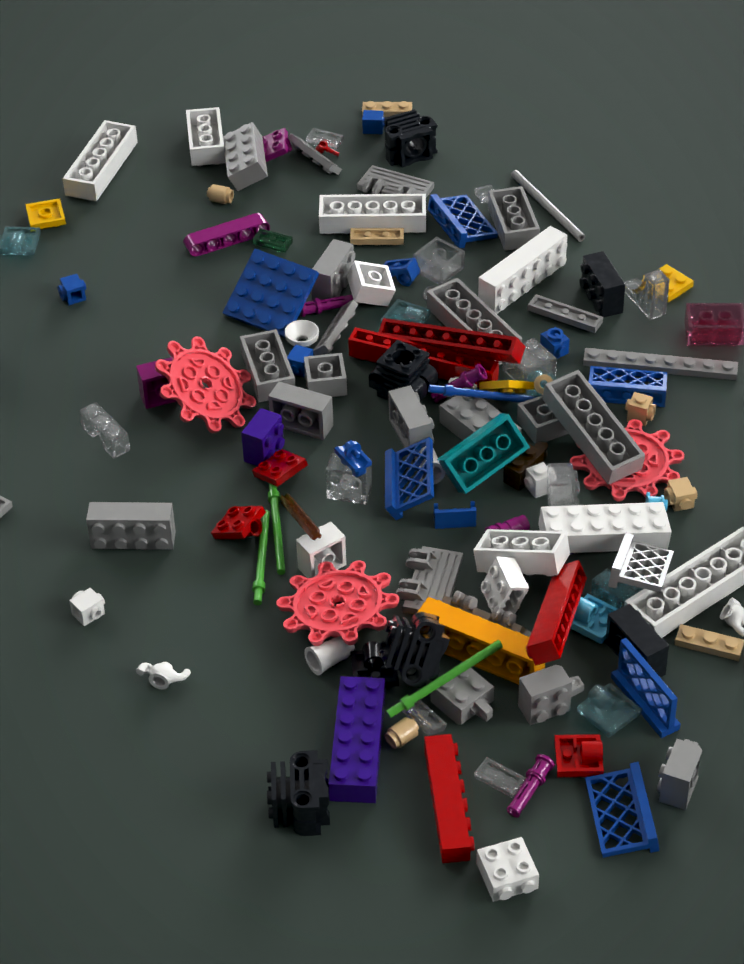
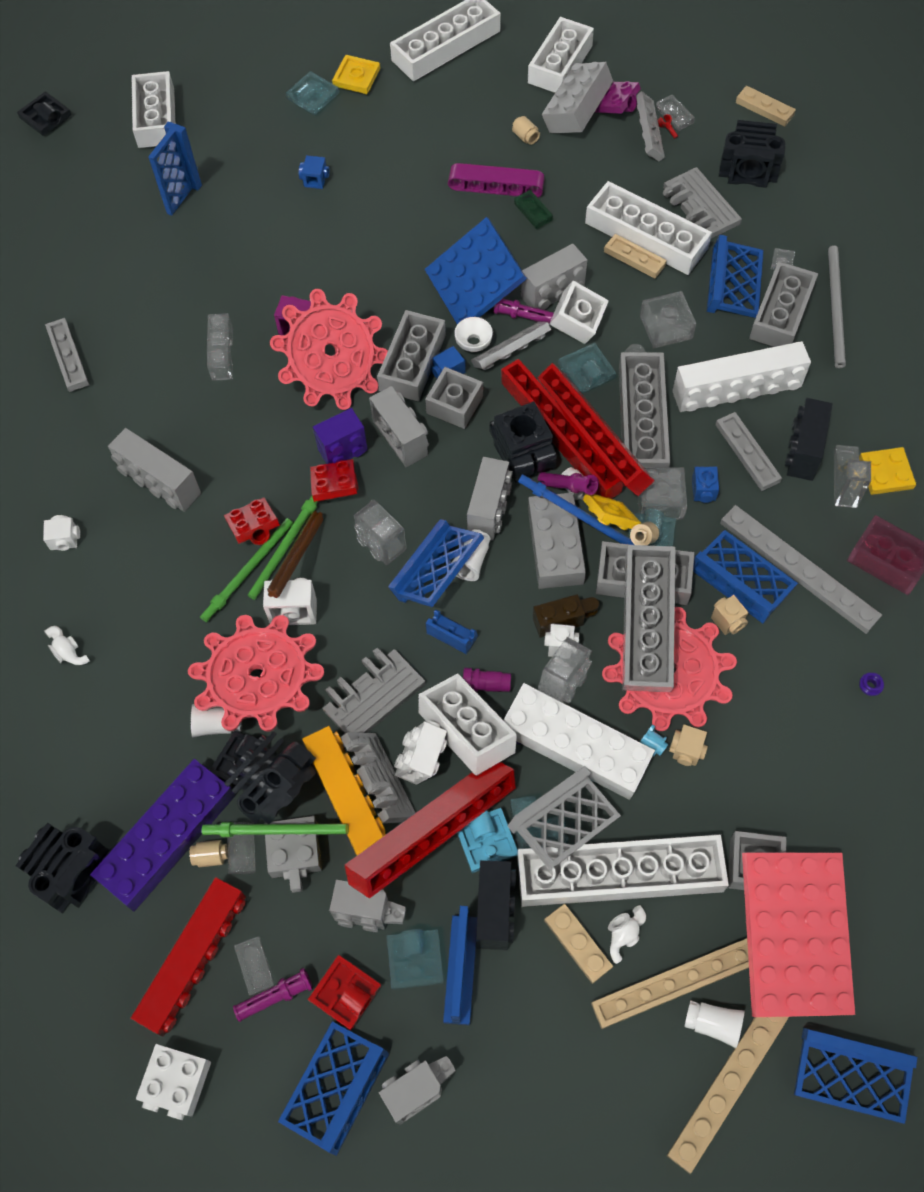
camera: 35 degrees right, 20 degrees up
(353, 457) = (379, 521): blue hips -> none
(373, 122) = (735, 111): blue brick -> none
(404, 269) = (626, 310): blue plate -> none
(483, 453) = (519, 583): teal brick -> none

